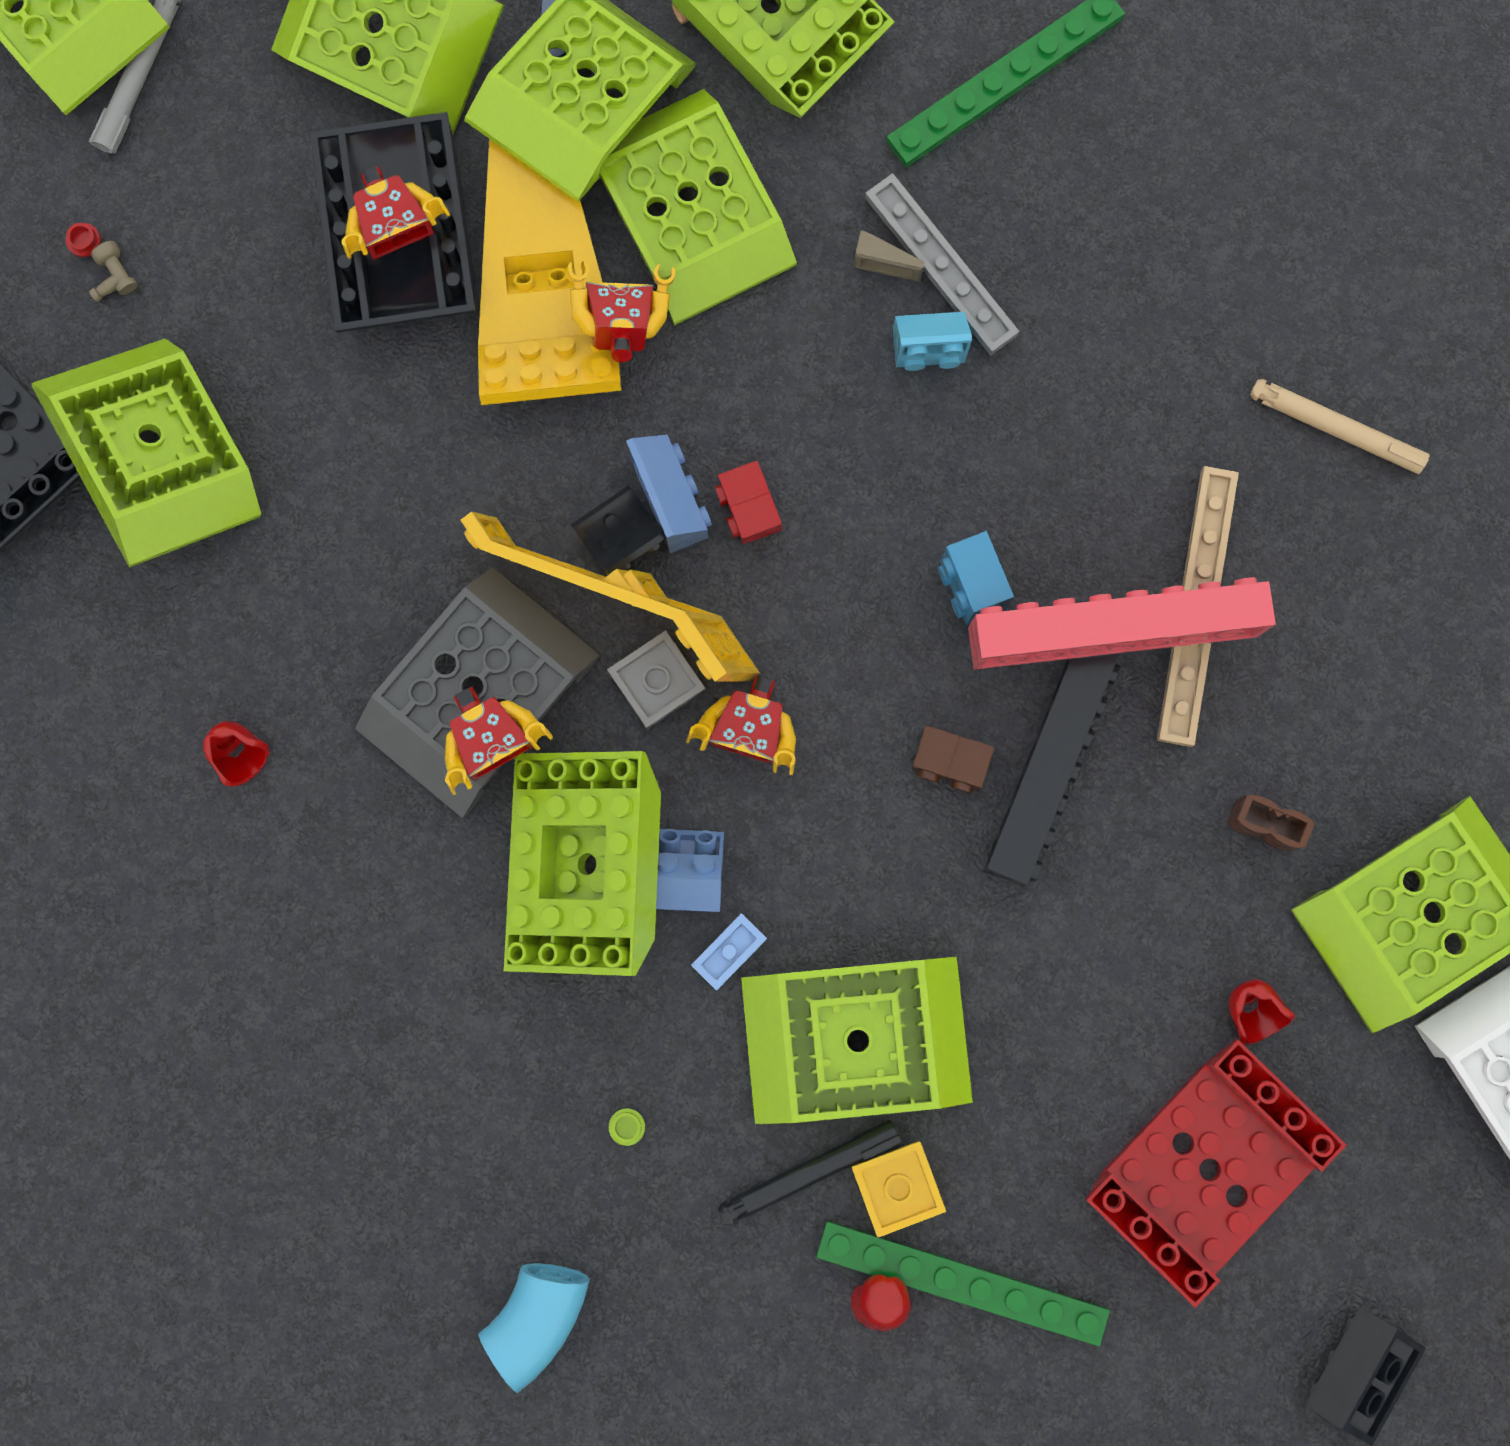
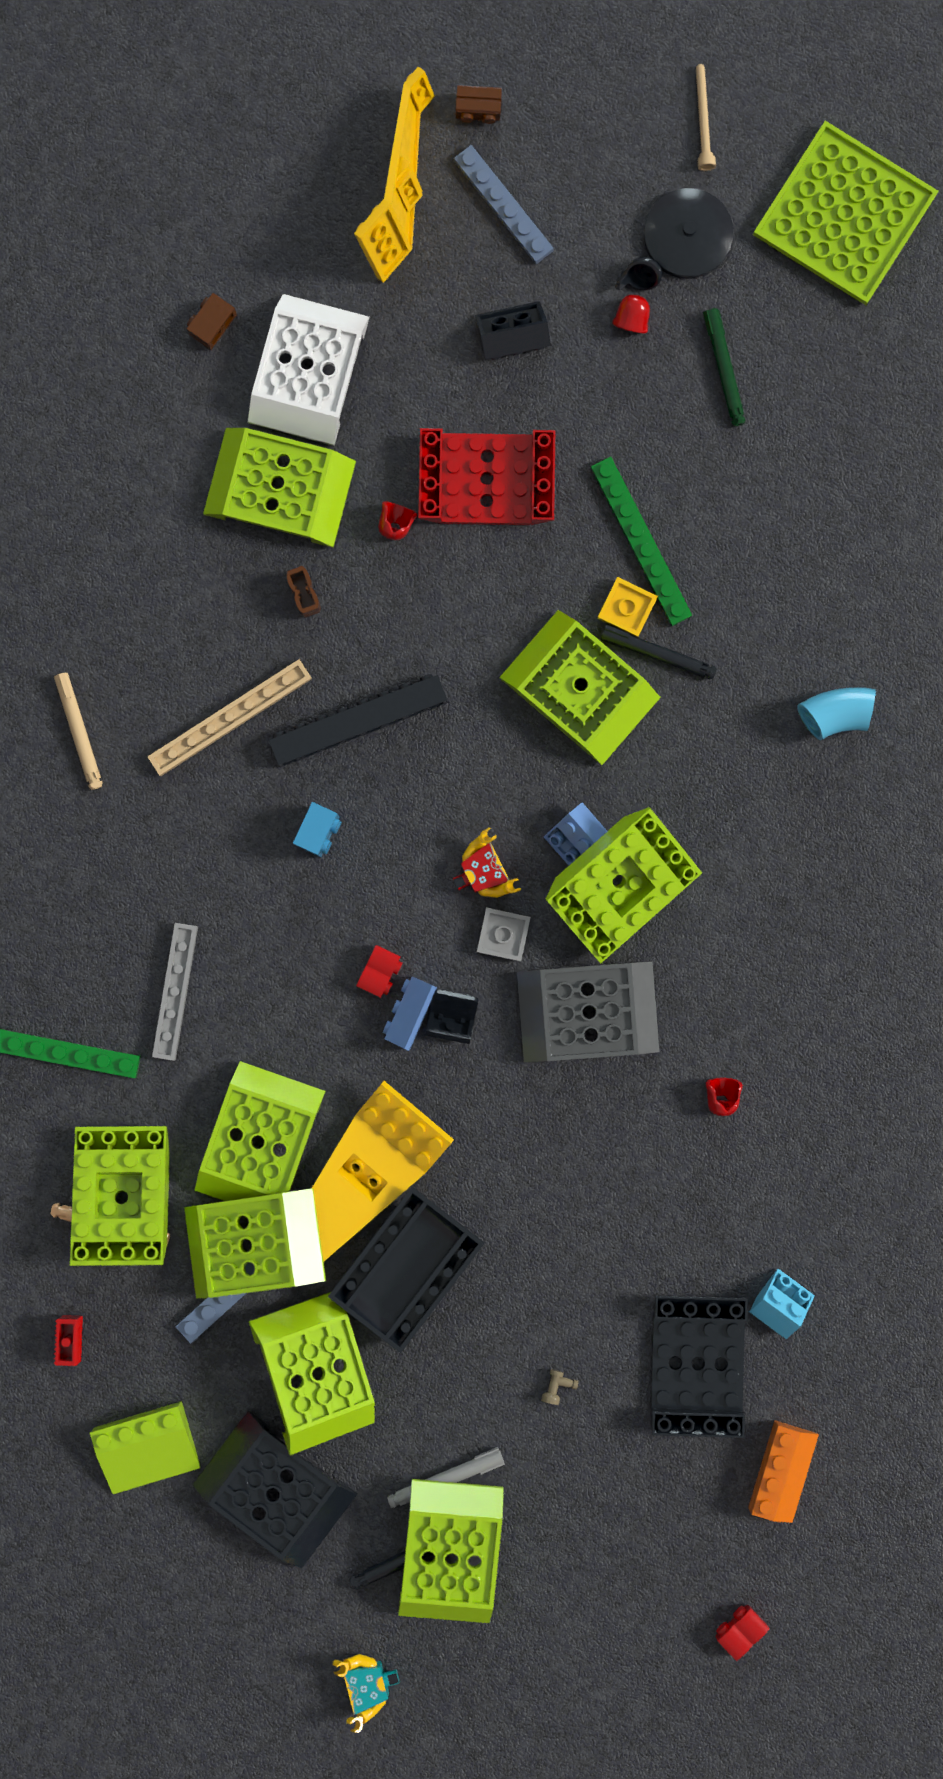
camera: 130 degrees left, 5 degrees up
(82, 239) = (554, 1417): red plate -> none
(159, 491) = (646, 1253): lime slope -> none
(389, 215) = (406, 1269): torso -> none
(487, 737) = (606, 979): torso -> none
(619, 313) = (349, 1116): torso -> none
(626, 1127) = (716, 753): lime plate -> none
(706, 632) = (461, 934): yellow wing -> none
(729, 952) = (596, 781): light blue plate -> none
(881, 1303) = (684, 568): red hair -> none
(883, 258) = (199, 1023): dark tan slope -> none
(931, 340) = (218, 960): medium azure slope -> none
(952, 759) = (410, 763): reddish brown brick -> none
(1121, 624) = (275, 737): coral brick -> none

